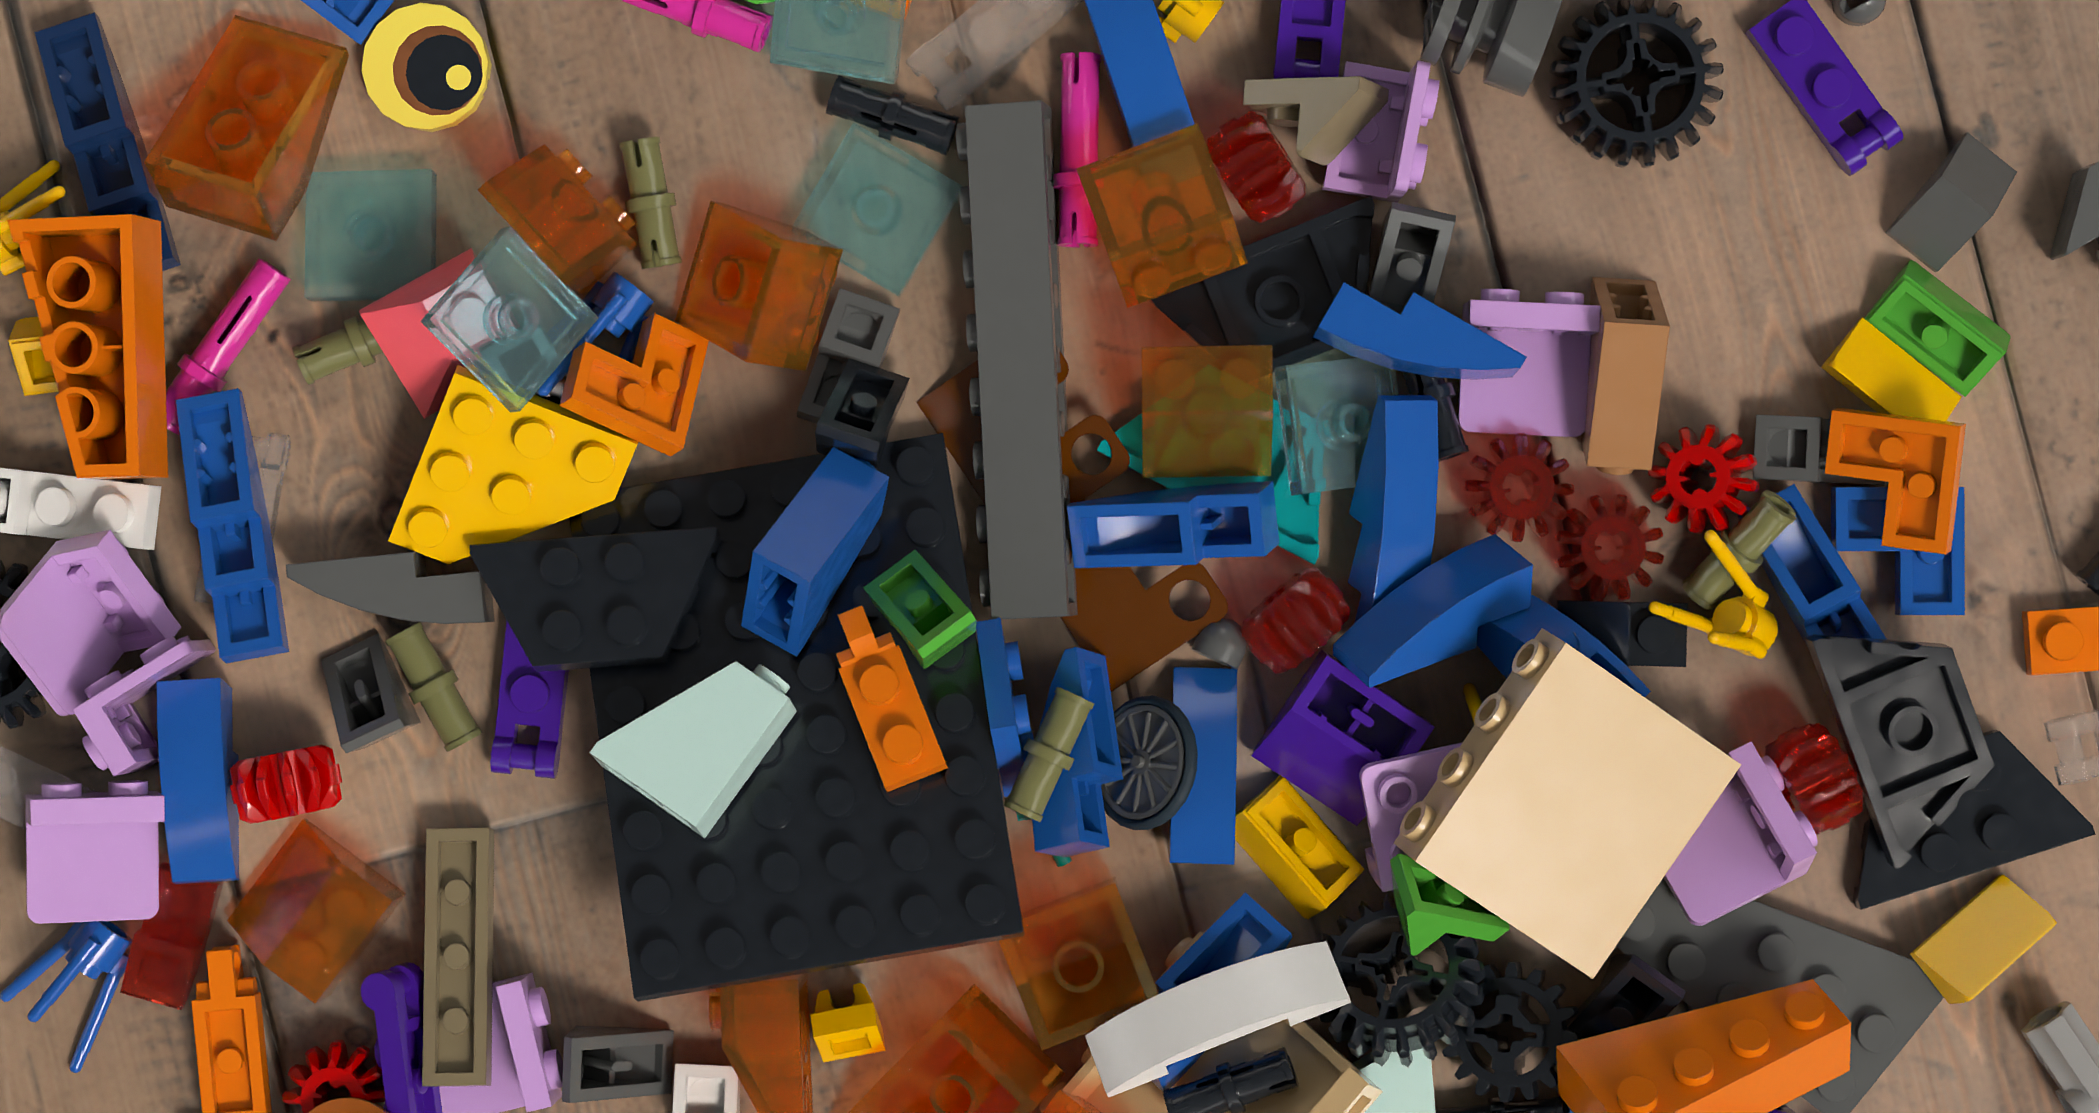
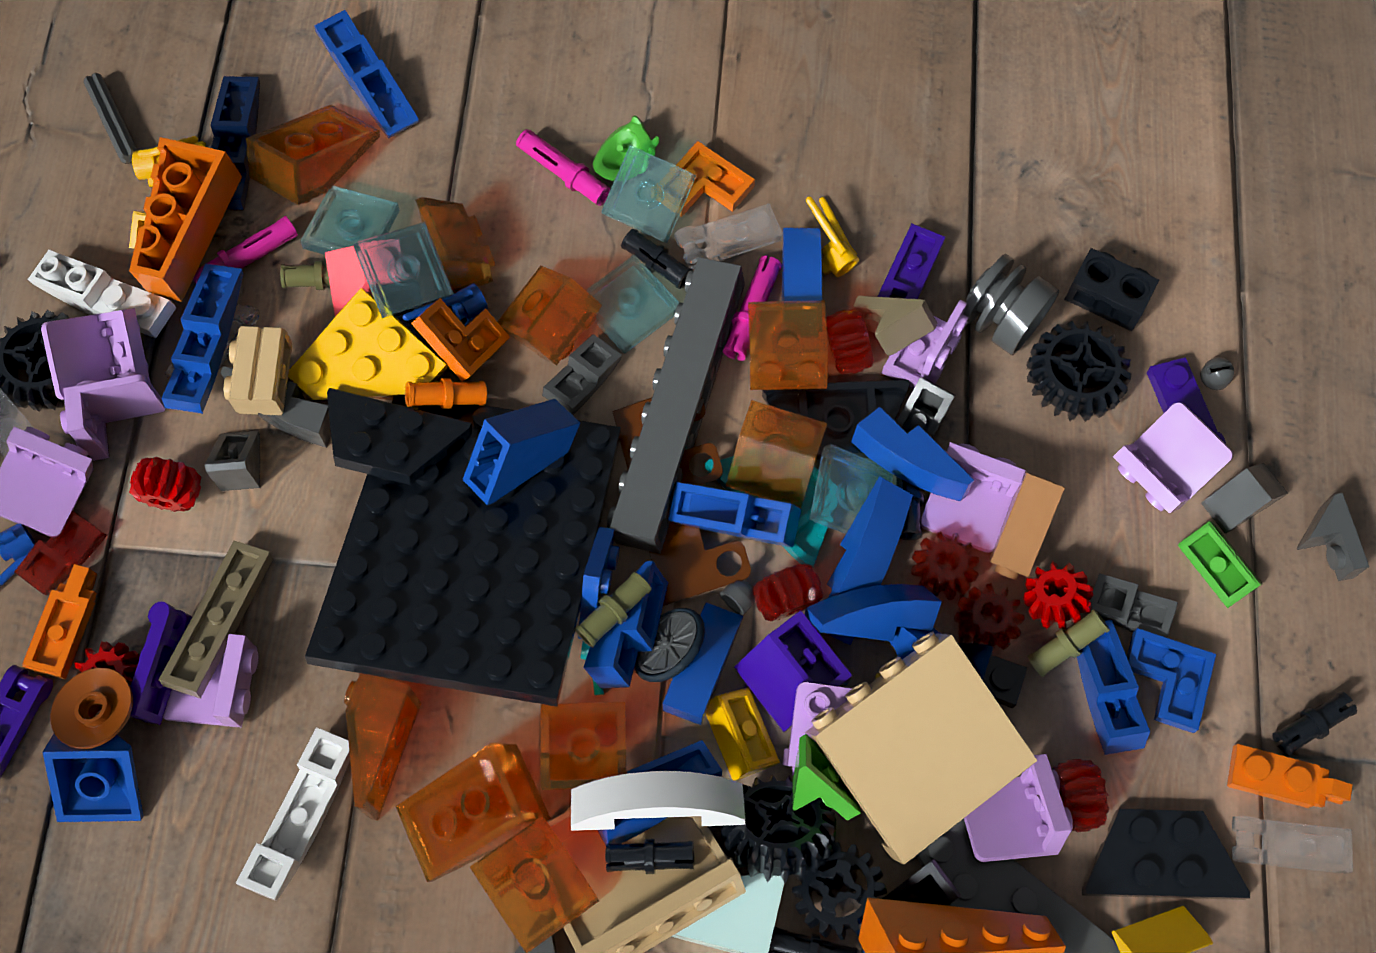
camera: 15 degrees right, 20 degrees down
(196, 779) = (106, 492): blue slope -> none
(314, 911) = (149, 569): clear orange slope -> none
(352, 563) = (259, 370): none -> tan brick
(426, 67) = (417, 158): tile -> none
(433, 686) = (275, 466): olive pin -> none
(530, 700) = (327, 491): dark purple plate -> none
(616, 1063) = (279, 714): dark grey slope -> none
(650, 202) = (507, 258): olive pin -> none
(654, 487) = (445, 393): none -> orange pin
(701, 743) = (409, 525): light aqua slope -> none
(849, 1029) = (428, 744): yellow tile -> none
(861, 412) = (577, 391): black slope -> none
(887, 704) = (528, 545): orange hinge -> none
(921, 608) = (572, 501): bright green slope -> none
(1736, 622) = (1055, 686): yellow plant -> none
(1822, 192) = (1174, 458): none -> lavender bracket
(1888, 376) = (1184, 584): yellow slope -> none
(1903, 730) = (1146, 783): black wing -> none
(1918, 462) = (1192, 623): orange plate -> none

